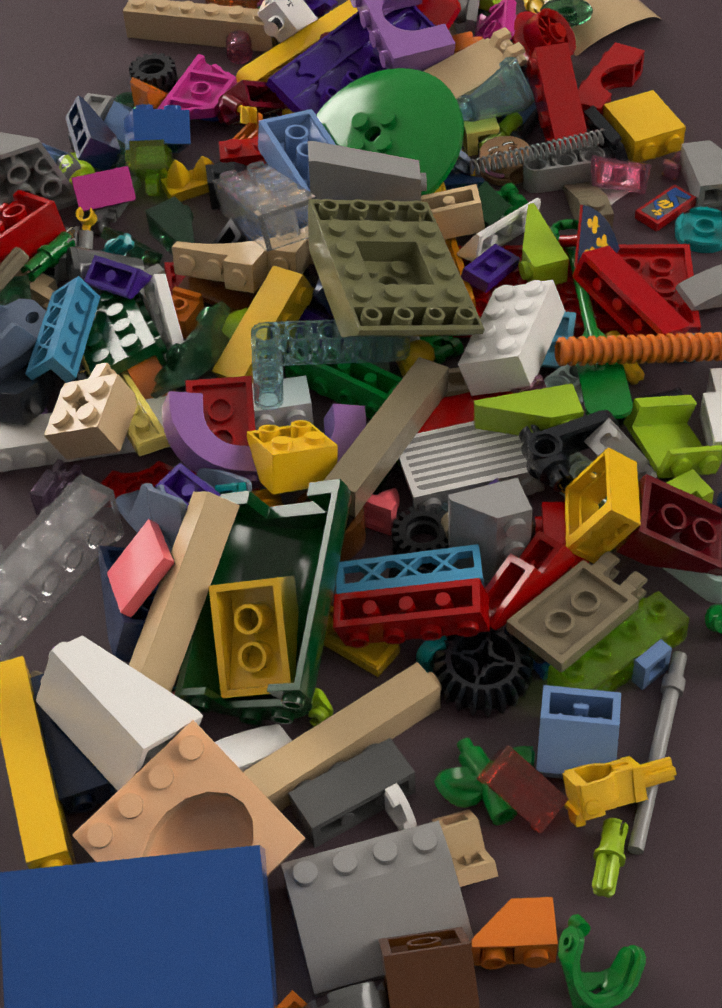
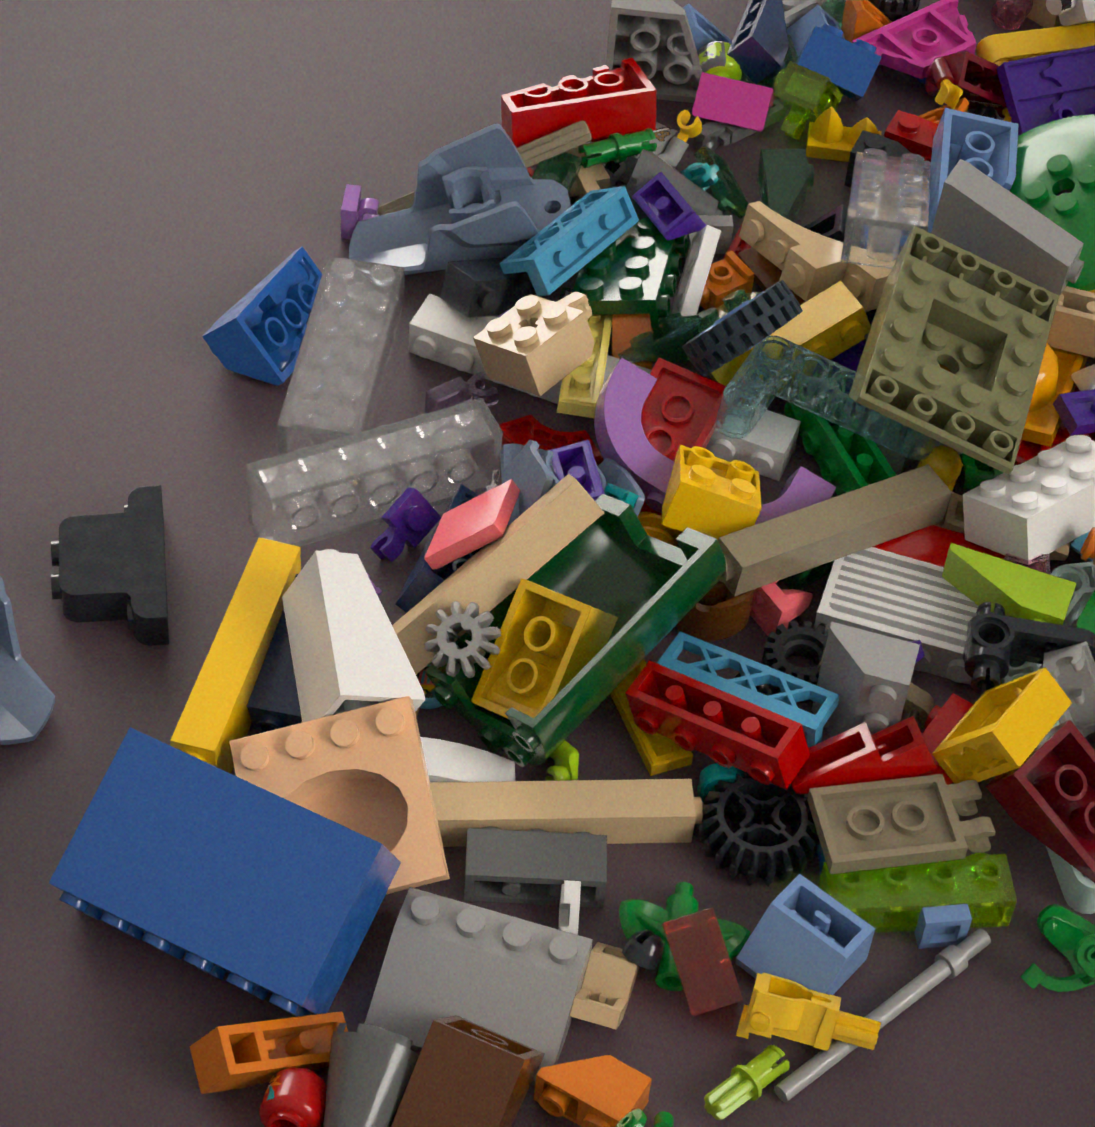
camera: 25 degrees right, 0 degrees up
(81, 594) = (408, 524): none -> dark purple plate
(194, 642) = (451, 653): none -> light grey gear
(234, 329) = (742, 328): none -> black wheel
(475, 805) = (644, 949): none -> black hinge

